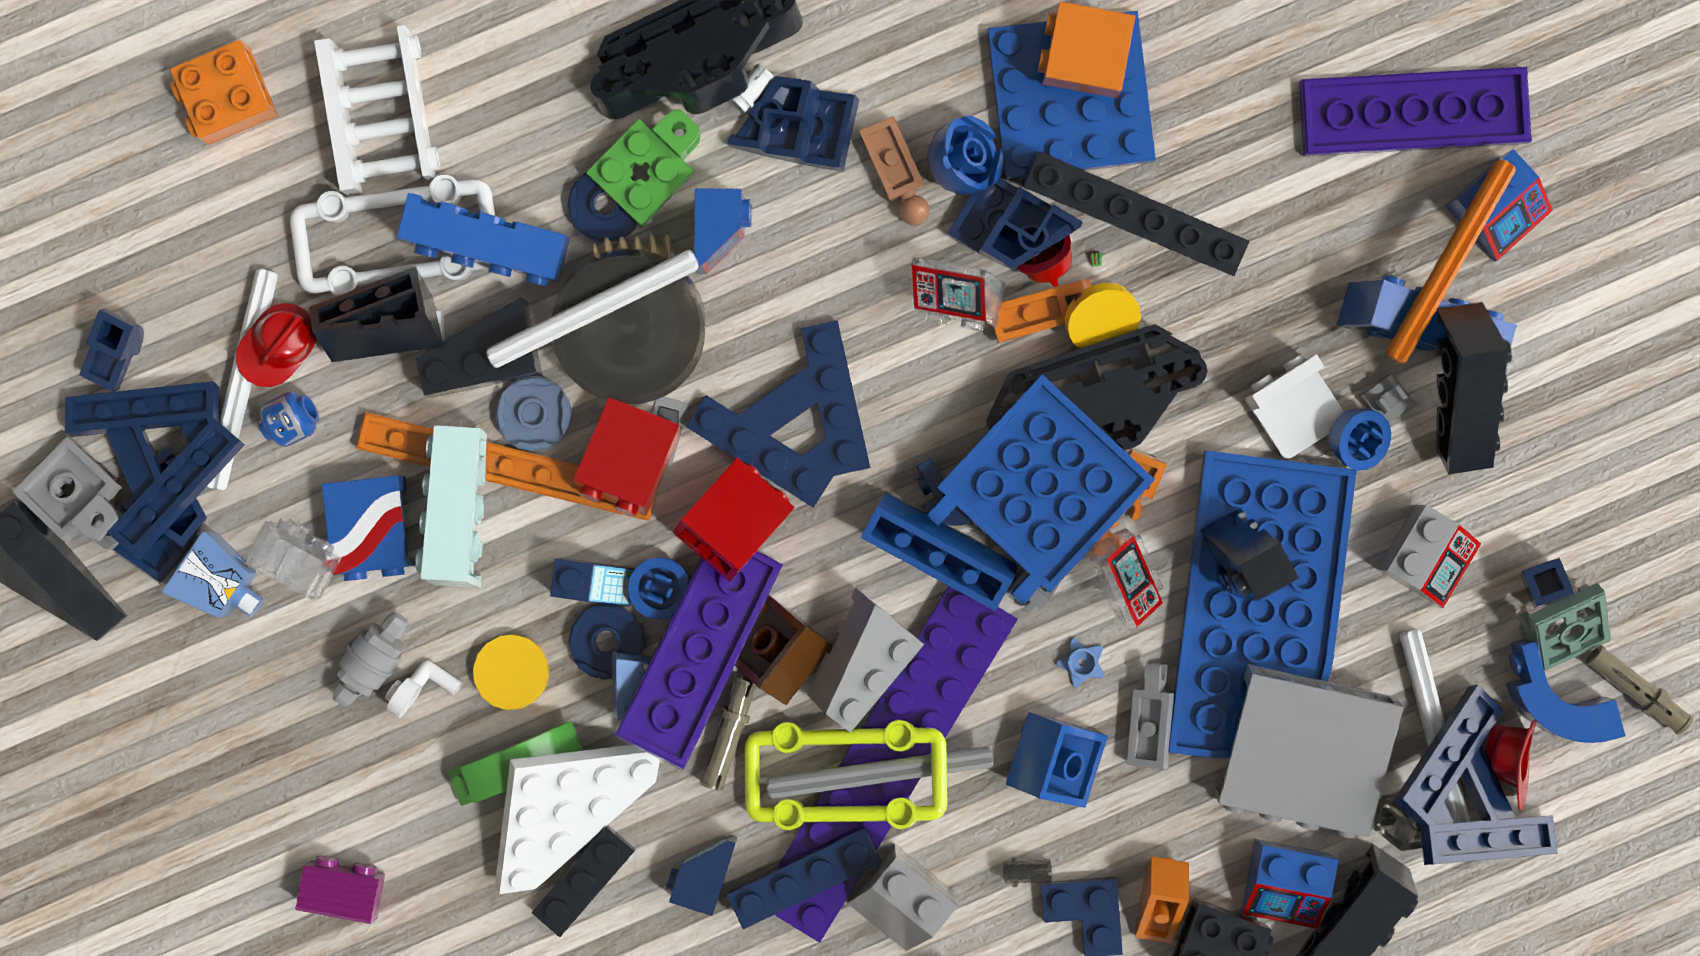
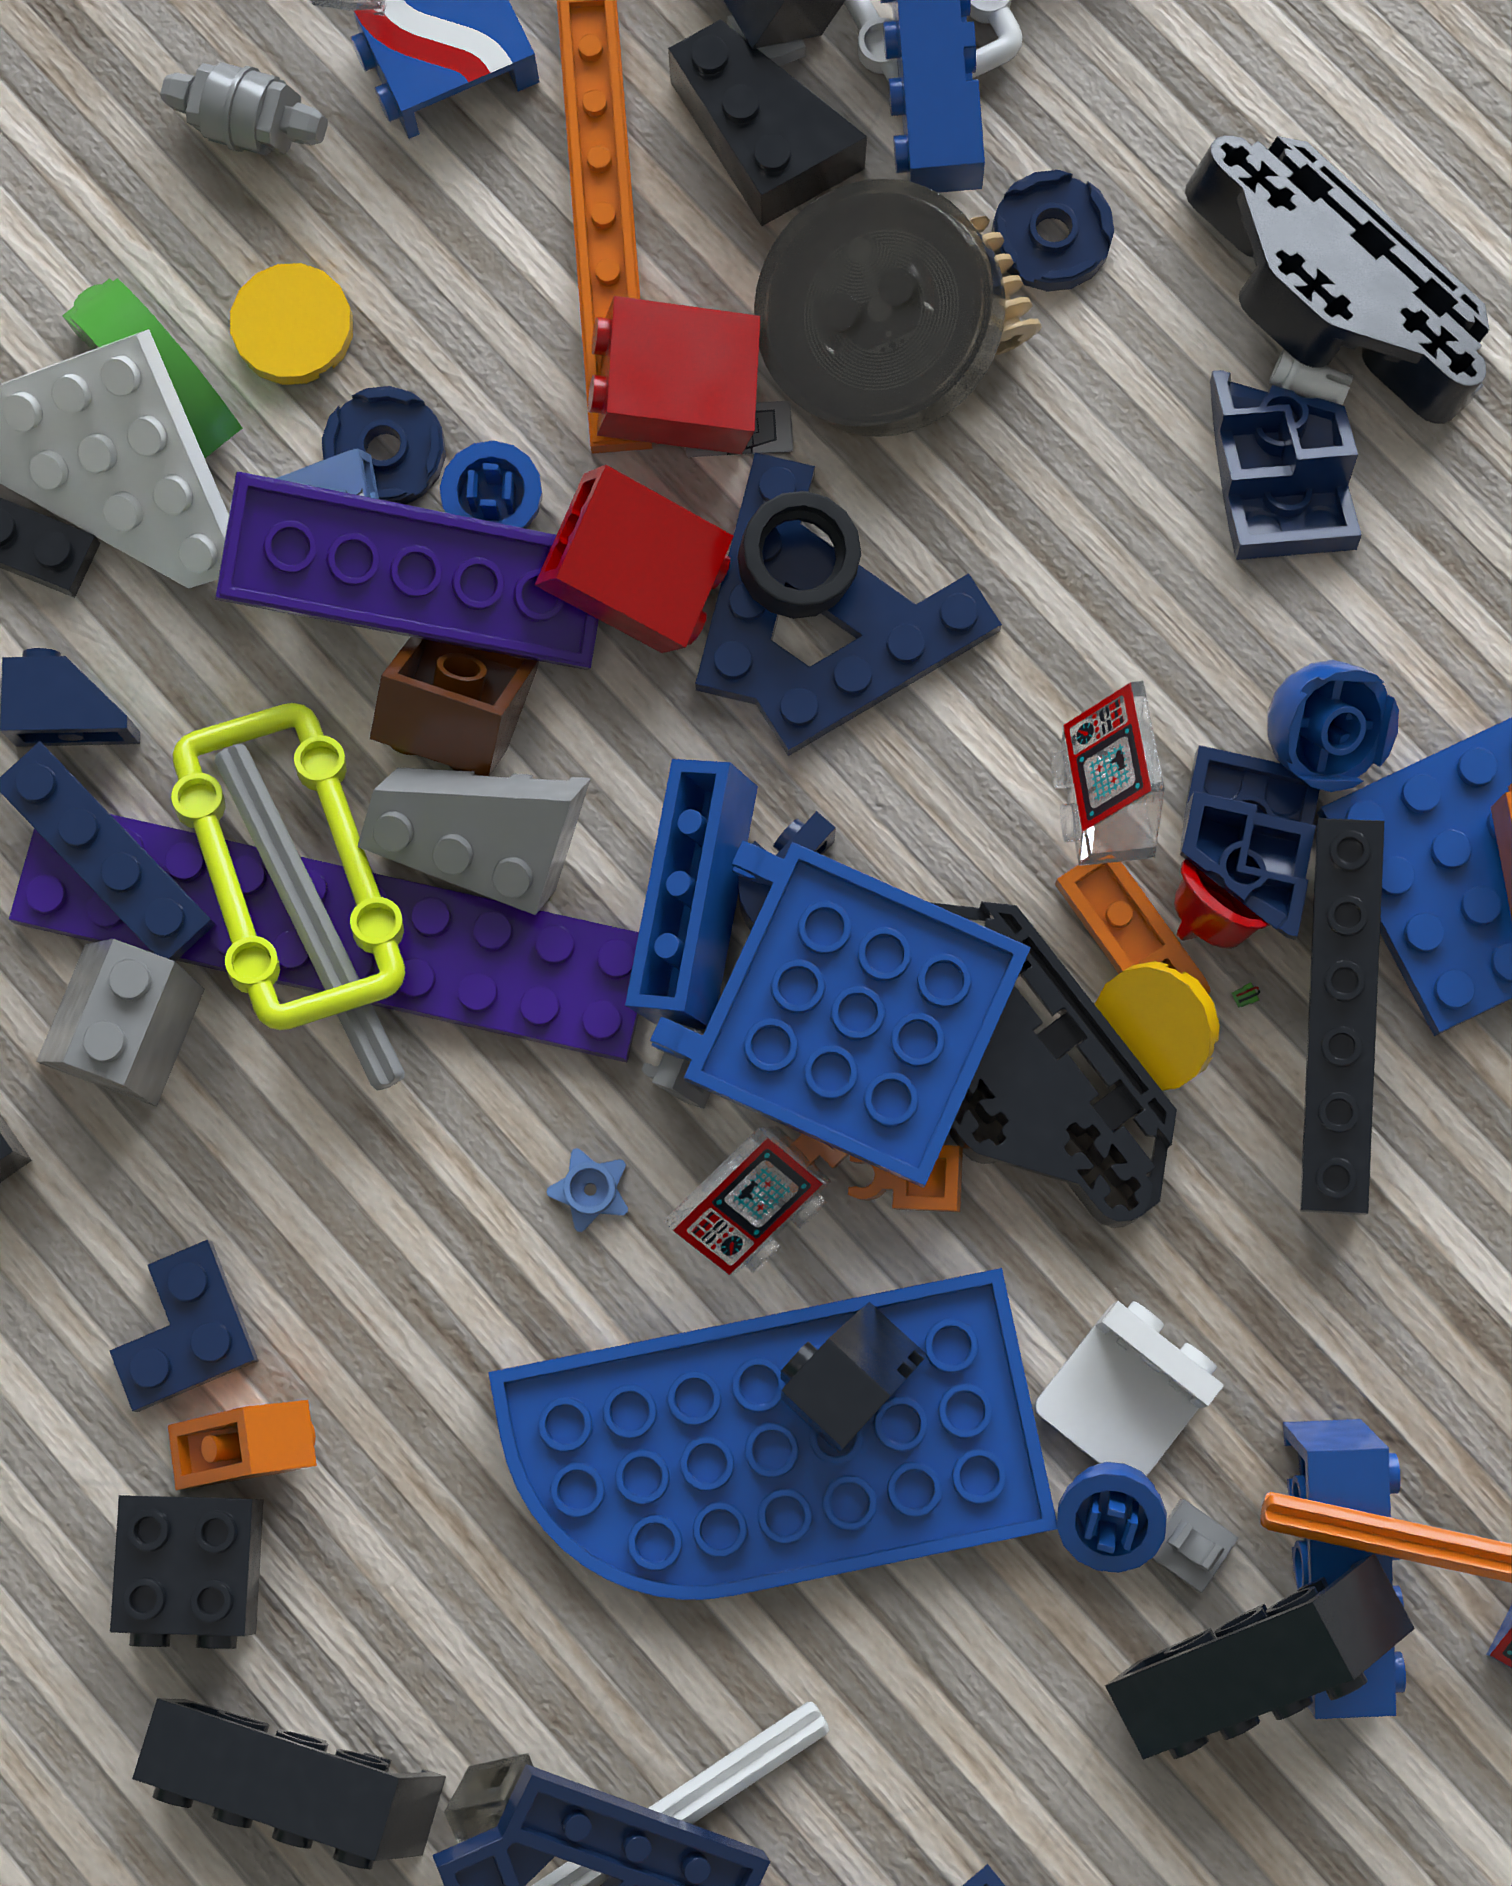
camera: 75 degrees right, 10 degrees down
(403, 695) = (207, 180): white plate -> none
(453, 507) = (510, 147): light aqua wedge -> none
(533, 414) = (697, 230): sand blue tile -> none
(591, 582) = (465, 382): slope -> none
(592, 308) = (887, 231): white axle -> none
(659, 151) = (1170, 277): bright green plate -> none
(718, 224) = (1079, 387): blue slope -> none
(728, 734) = (295, 672): dark tan pin -> none
(767, 395) = (809, 509): none -> black tyre
(896, 169) = (1270, 634): nougat plate -> none
(1026, 871) = (221, 1209): clear smoke pin -> none
(1056, 760) = (417, 1196): blue slope -> none
(1151, 720) = (533, 1327): light grey plate -> none
(1289, 883) = (332, 1649): blue slope -> none
(1310, 752) = (562, 1603): light grey panel -> none
(1429, 554) = (959, 1708): light grey slope -> none

